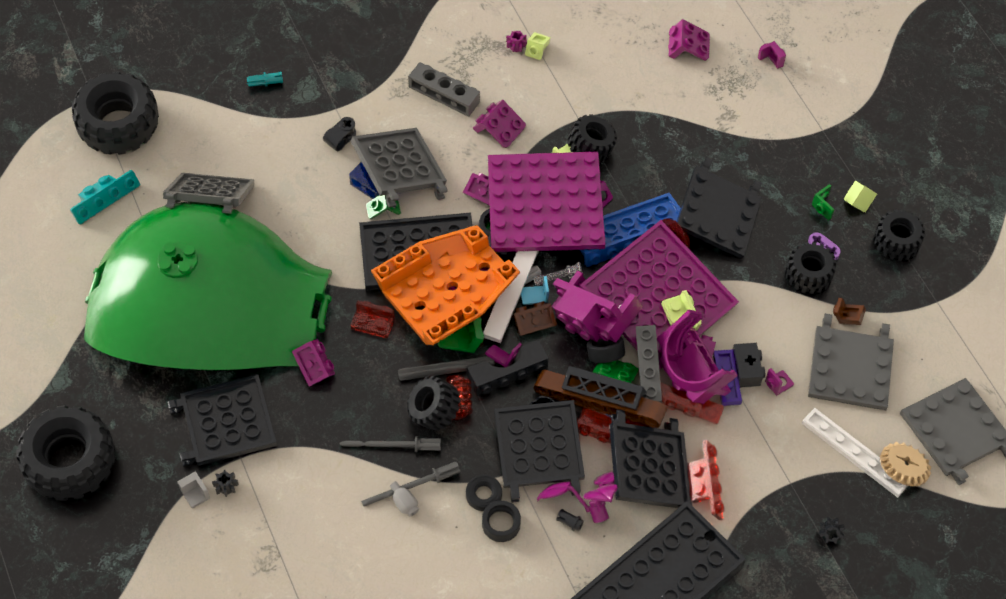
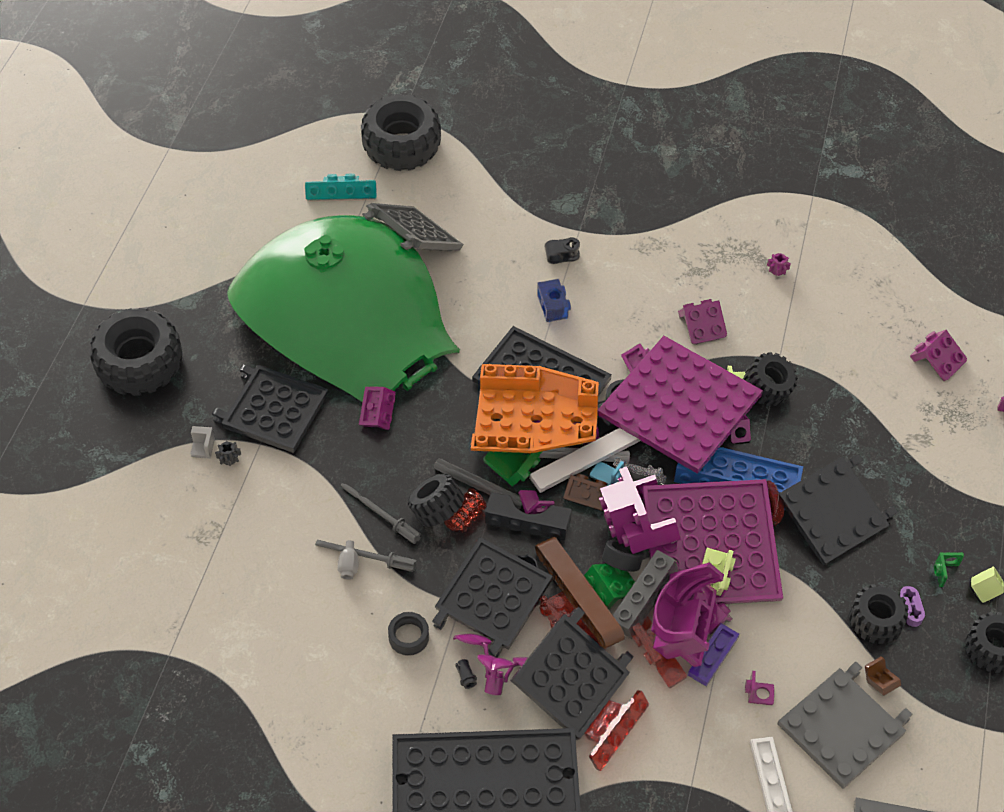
camera: 40 degrees right, 5 degrees down
(264, 79) = (541, 175): teal axle -> none
(373, 319) = (456, 407): clear red bracket -> none
(379, 205) = (545, 322): bracket -> none
(399, 163) = (586, 299): dark grey plate -> none
(444, 89) = (680, 266): dark grey brick -> none
(479, 481) = (417, 589): black tyre -> none
(536, 45) = (794, 276): yellowish green bracket -> none
(607, 382) = (597, 587): black fence -> none
(748, 364) = (745, 646): black brick -> none

